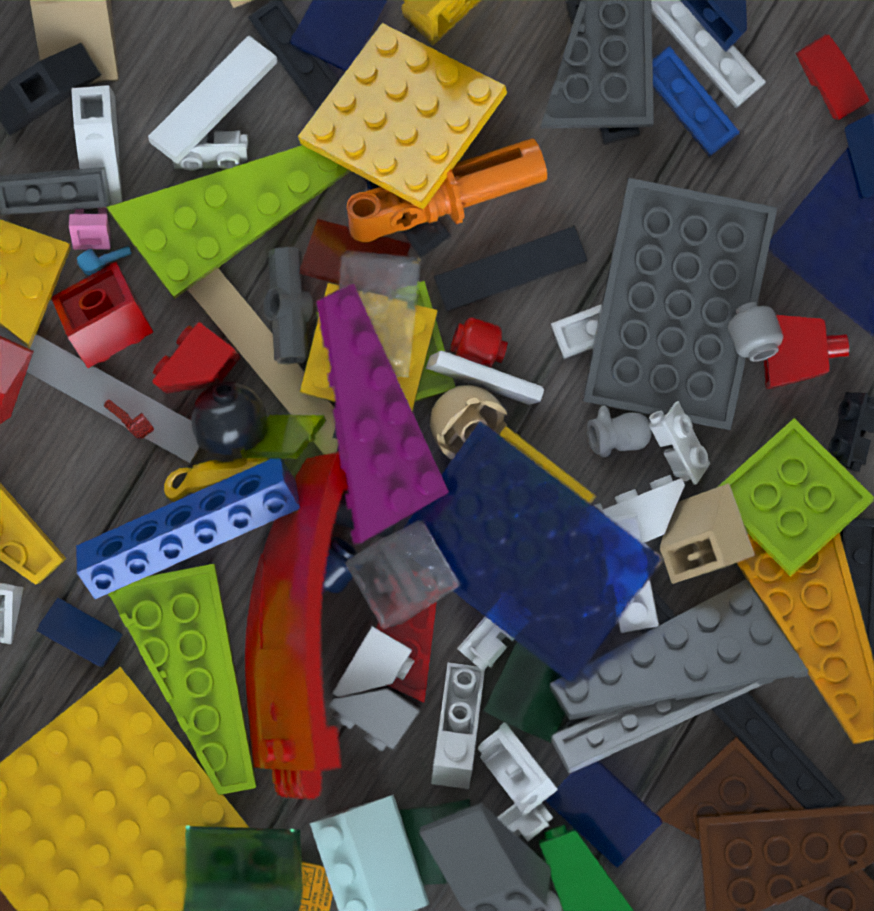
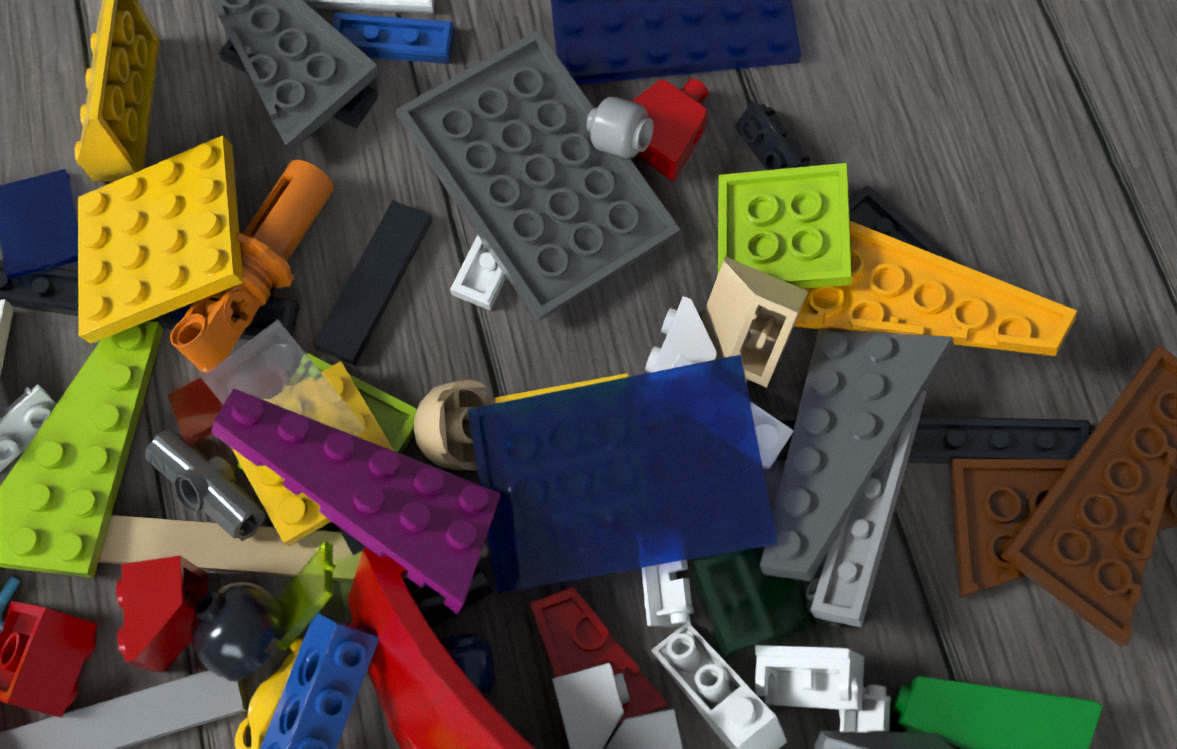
camera: 50 degrees left, 15 degrees down
(138, 426) = (160, 723): clear red hand -> none
(402, 574) = (532, 605): clear slope -> none
(479, 342) = (405, 359): red head -> none
(485, 377) = (413, 384): white tile -> none
(604, 811) = (921, 636): clear blue piece -> none
(622, 433) = (597, 313): light grey animal -> none
(687, 457) = (638, 266): white hinge -> none

